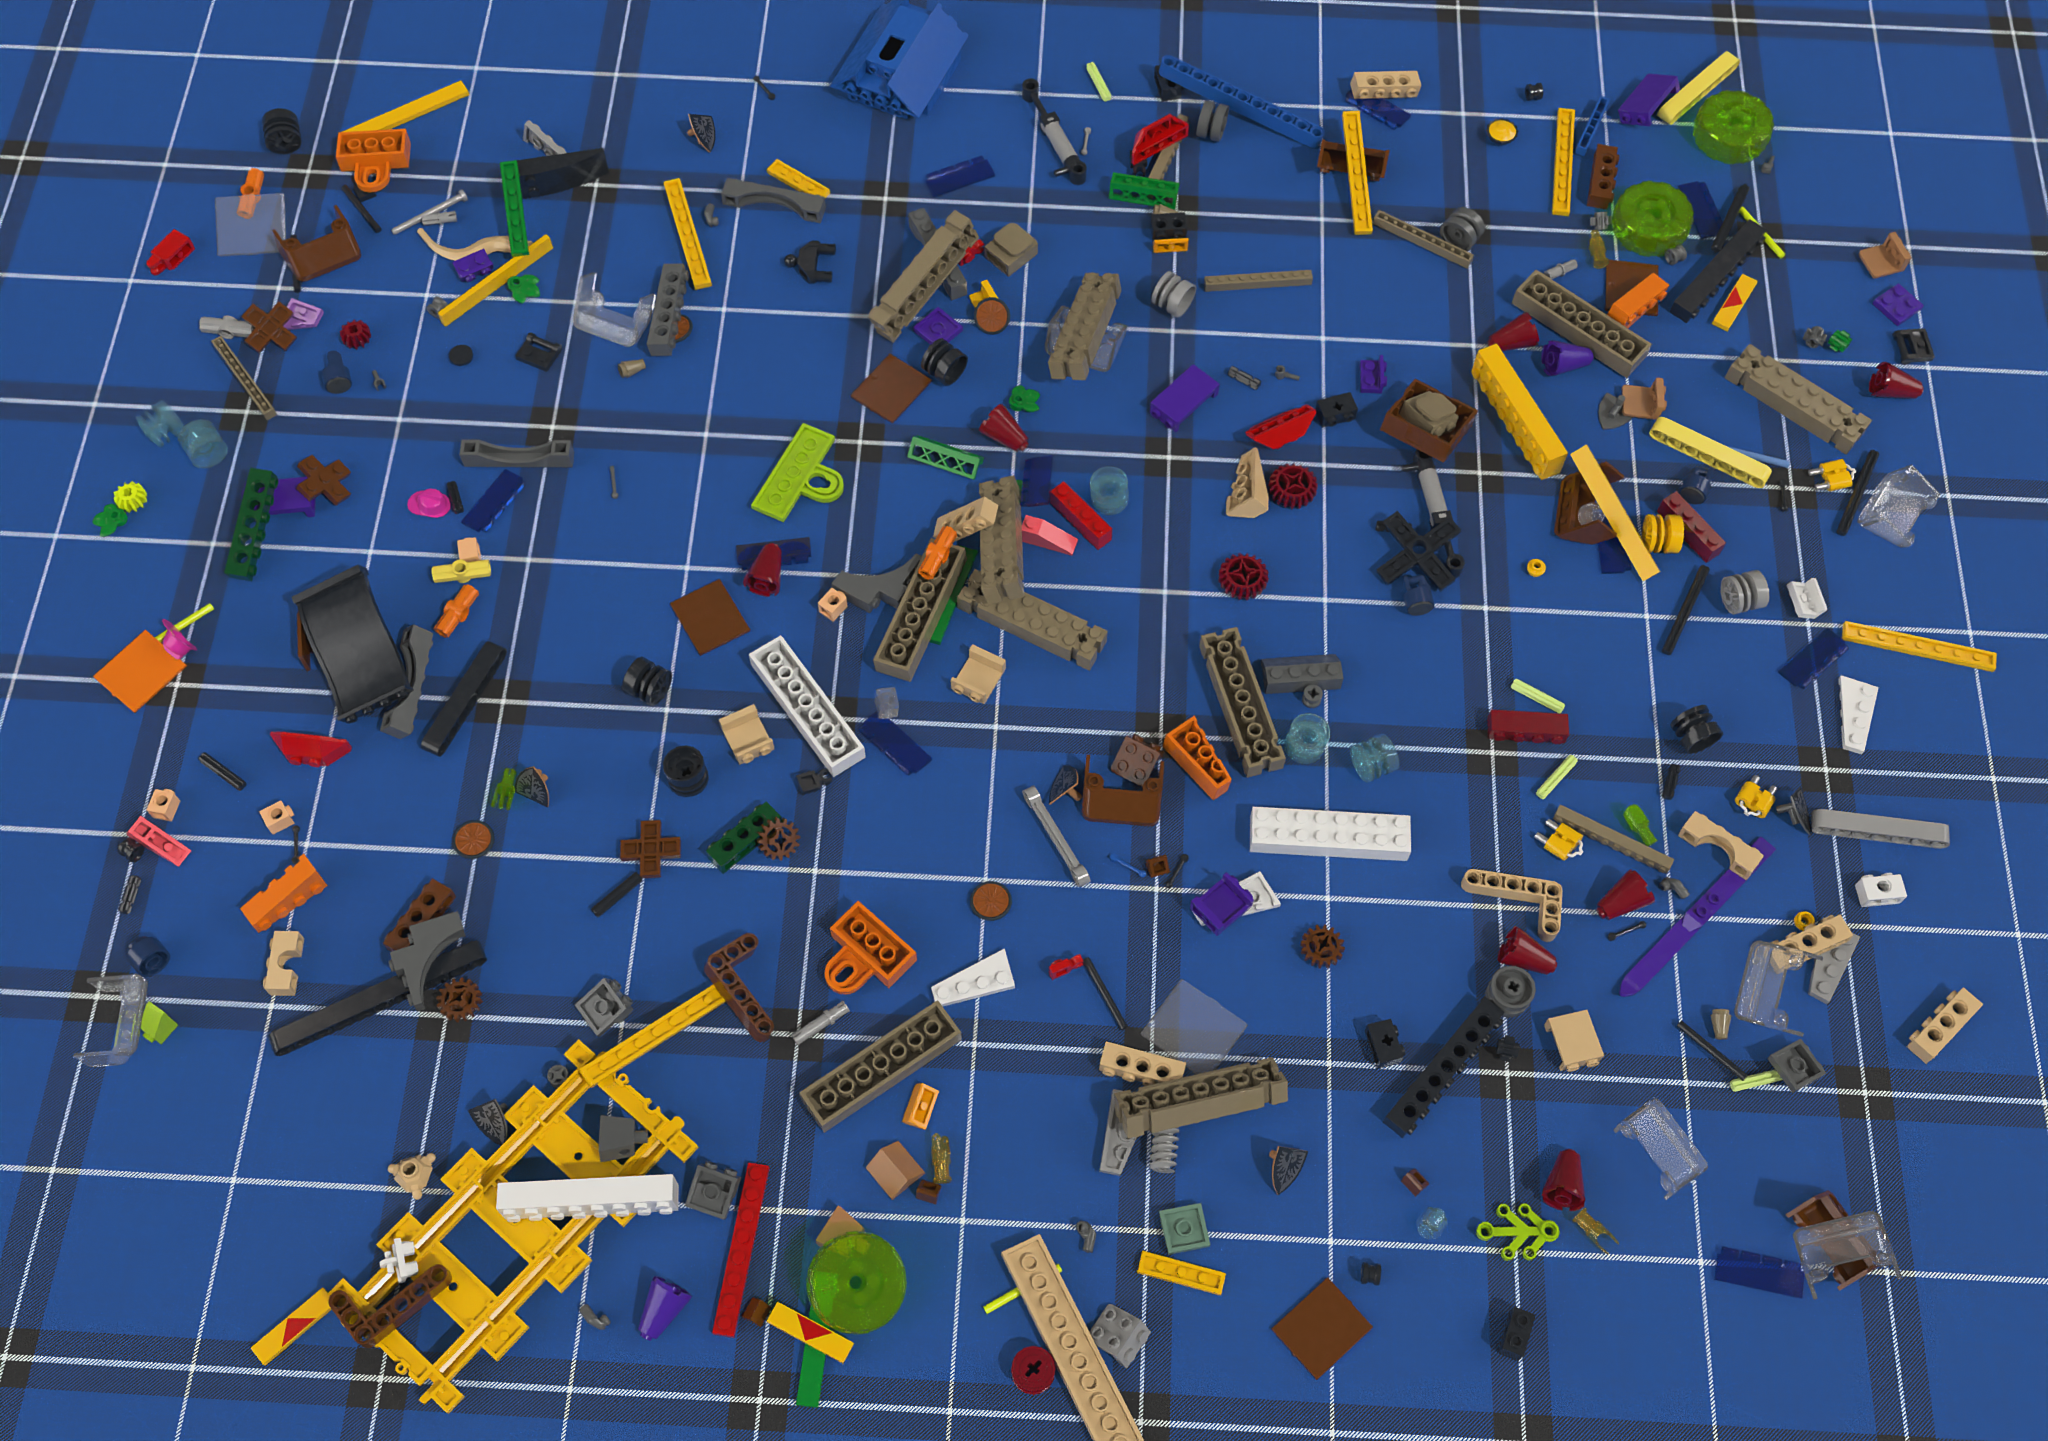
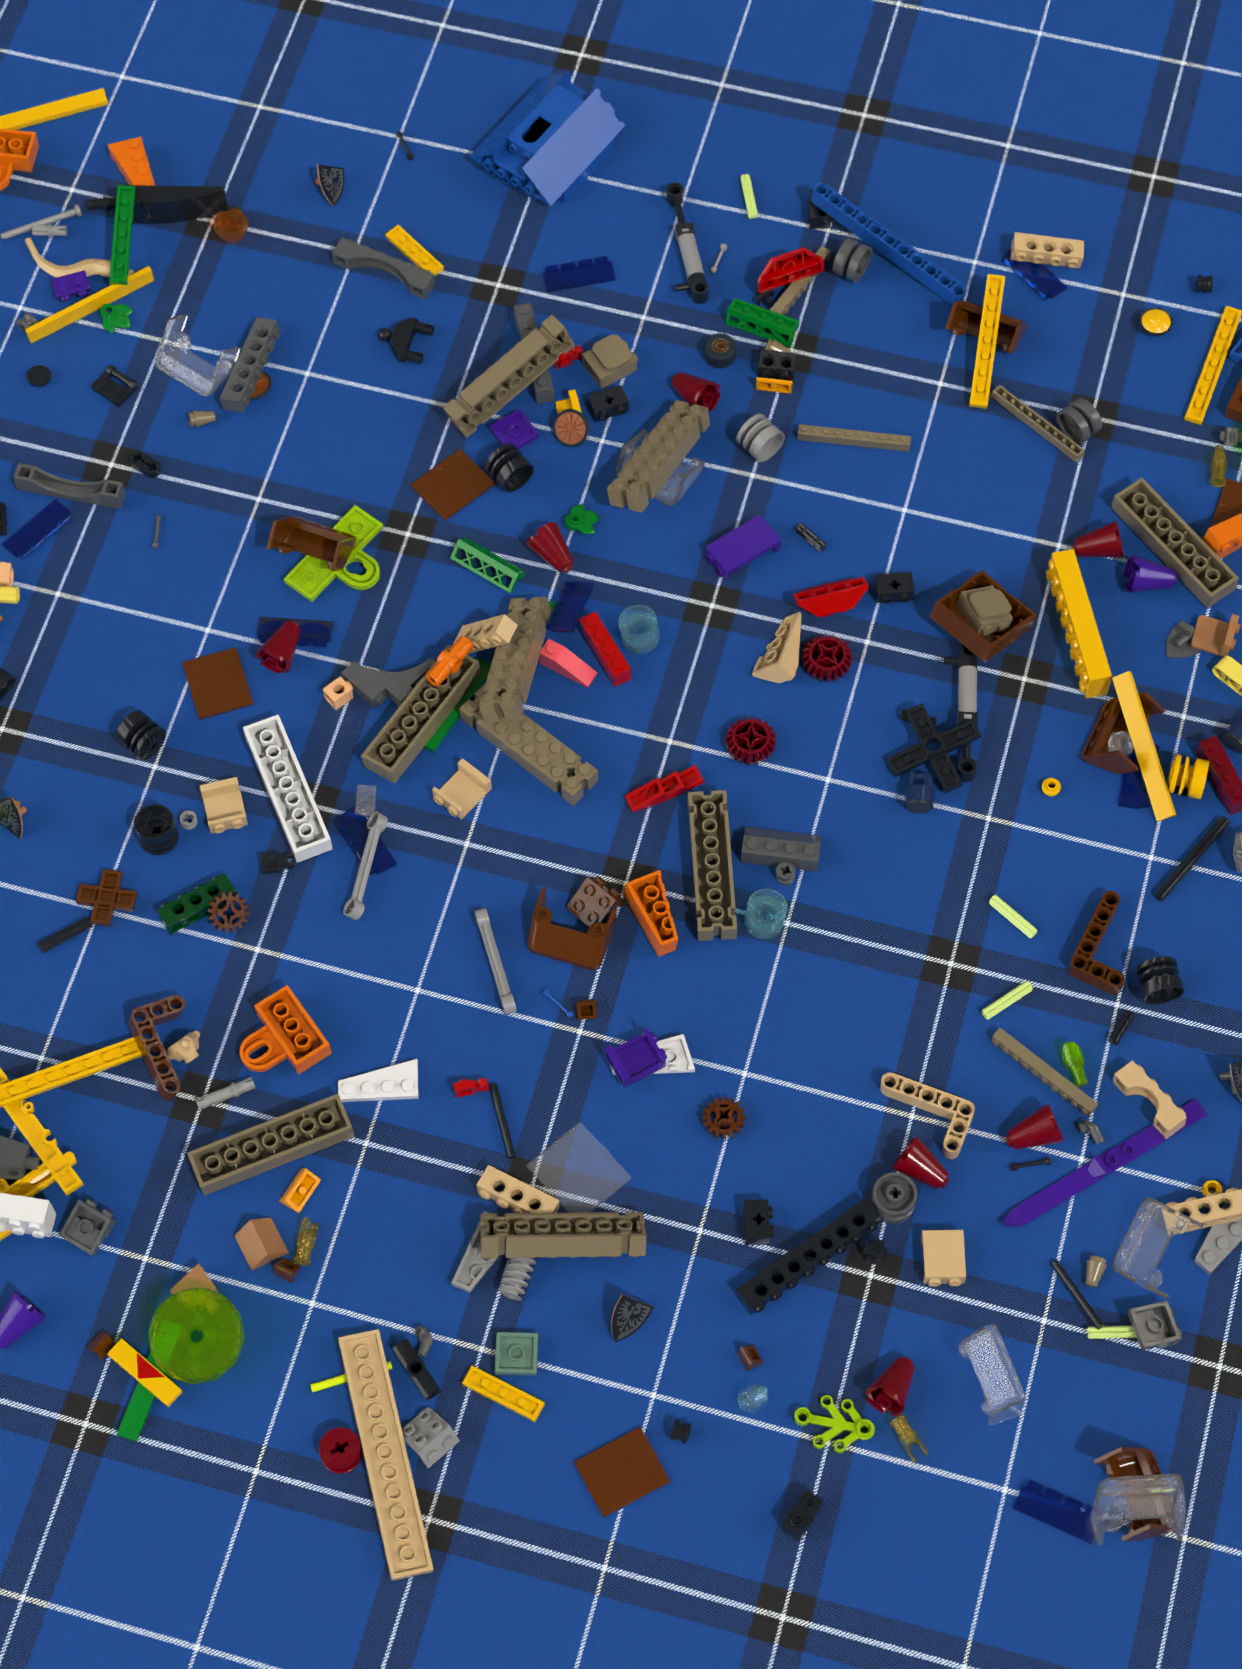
camera: 15 degrees right, 0 degrees up
(487, 184) = (102, 203): none -> black pin
(505, 140) = (132, 161): none -> orange wedge
(533, 134) = (160, 157): light grey wing -> none
(587, 419) = (143, 467): none -> black beam
(604, 1006) = (29, 1037): dark grey plate -> none
(617, 184) = (231, 225): none -> clear orange cone
(687, 234) = (289, 288): yellow plate -> none
(712, 221) = (315, 272): dark grey arm -> none
(714, 761) = (185, 824): none -> light grey bush
(741, 1250) = (101, 1286): red plate -> none
(768, 985) = (185, 1048): none -> tan rock
(772, 462) = (311, 539): none -> reddish brown windscreen
(902, 809) = (354, 907): none -> light grey piece
(990, 901) = (416, 1011): dark orange wheel -> none
(1020, 287) = (608, 403): none -> black brick
(1065, 783) = (517, 912): shield -> none
(1098, 1277) = (410, 1359): none -> black piece
(1100, 260) = (696, 390): none -> dark red cone
(1112, 222) = (720, 350): none -> black wheel
(1174, 637) = (664, 789): none -> red slope
(1184, 858) = (615, 1007): black hinge -> none
(1282, 374) = (851, 540): dark grey hand -> none
(1330, 833) = (762, 1011): white brick -> none
(1372, 375) = (941, 559): dark purple bracket -> none
(1374, 757) = (830, 945): clear light blue wheel -> none
(1528, 726) = (992, 944): dark red brick -> none
(1561, 269) = (1173, 481): light grey axle -> none
(1562, 841) = (992, 1064): yellow piece -> none
(1621, 706) = (1092, 942): none -> reddish brown beam
(1755, 799) = (1200, 1061): yellow piece -> none

